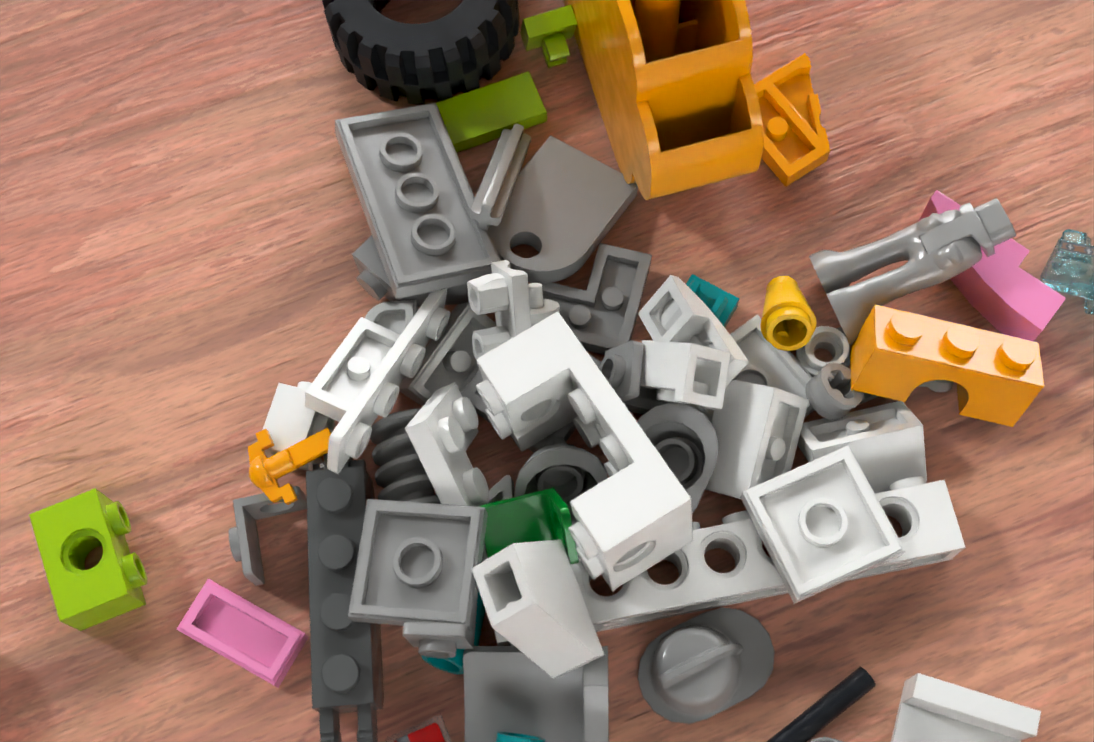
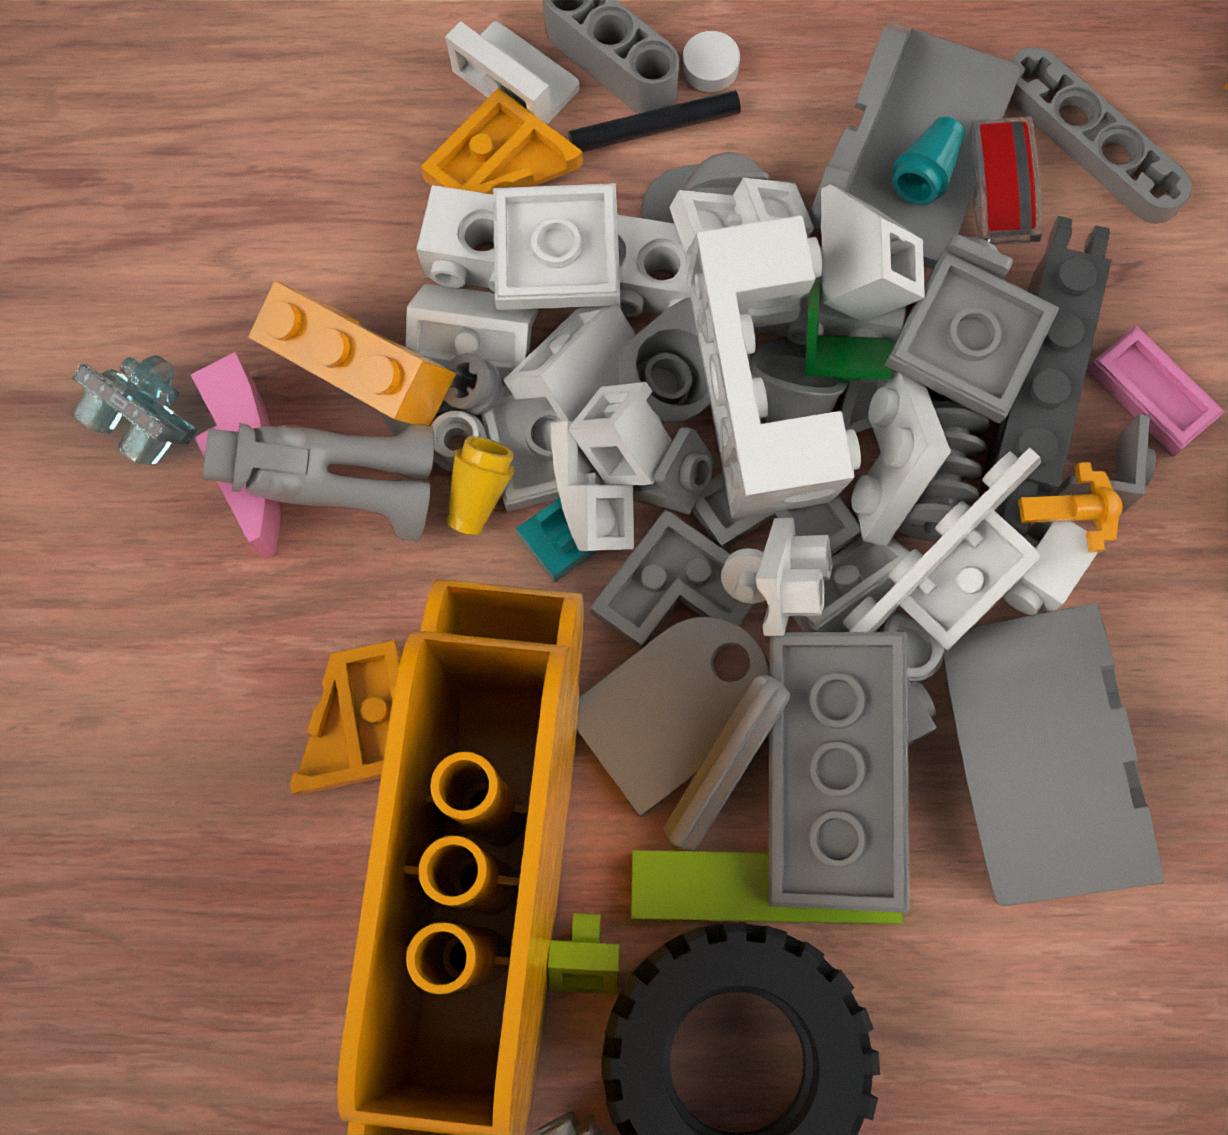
camera: 160 degrees left, 5 degrees up
(268, 282) = (1050, 758): none -> light grey panel
(668, 616) = (751, 203): none -> white slope
(927, 626) = (501, 149): none -> light orange wing

